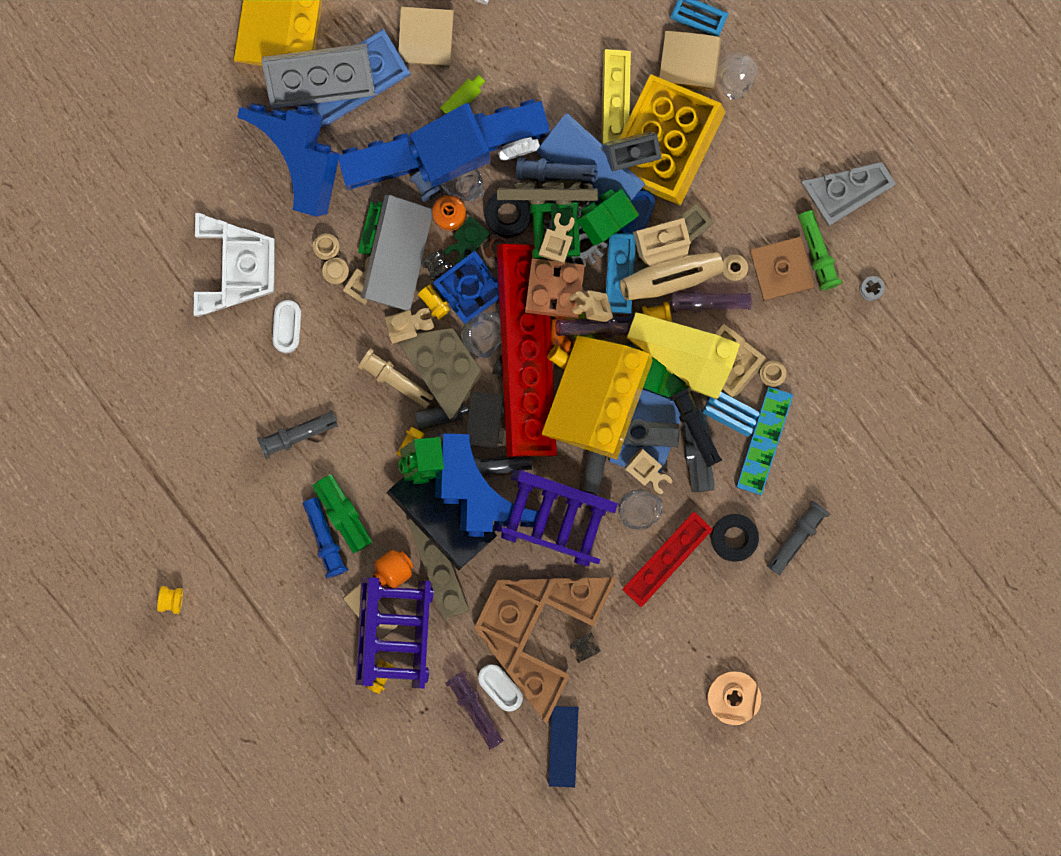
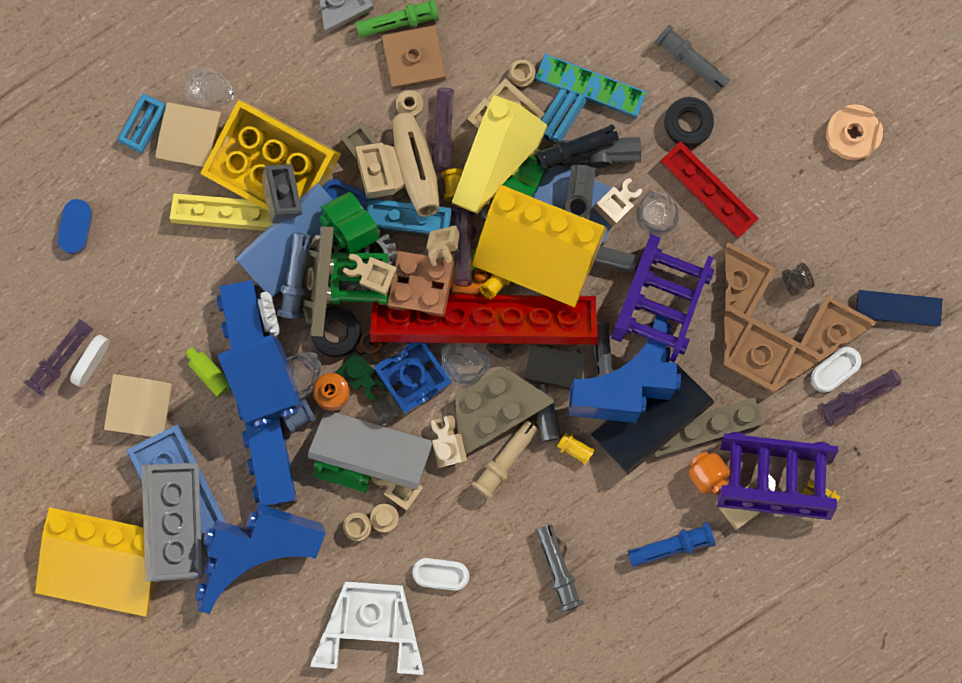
camera: 80 degrees left, 5 degrees down
(342, 513) = (646, 524): green piece -> none
(421, 460) = (598, 432): green brick -> none
(434, 302) = (425, 414): yellow pin -> none

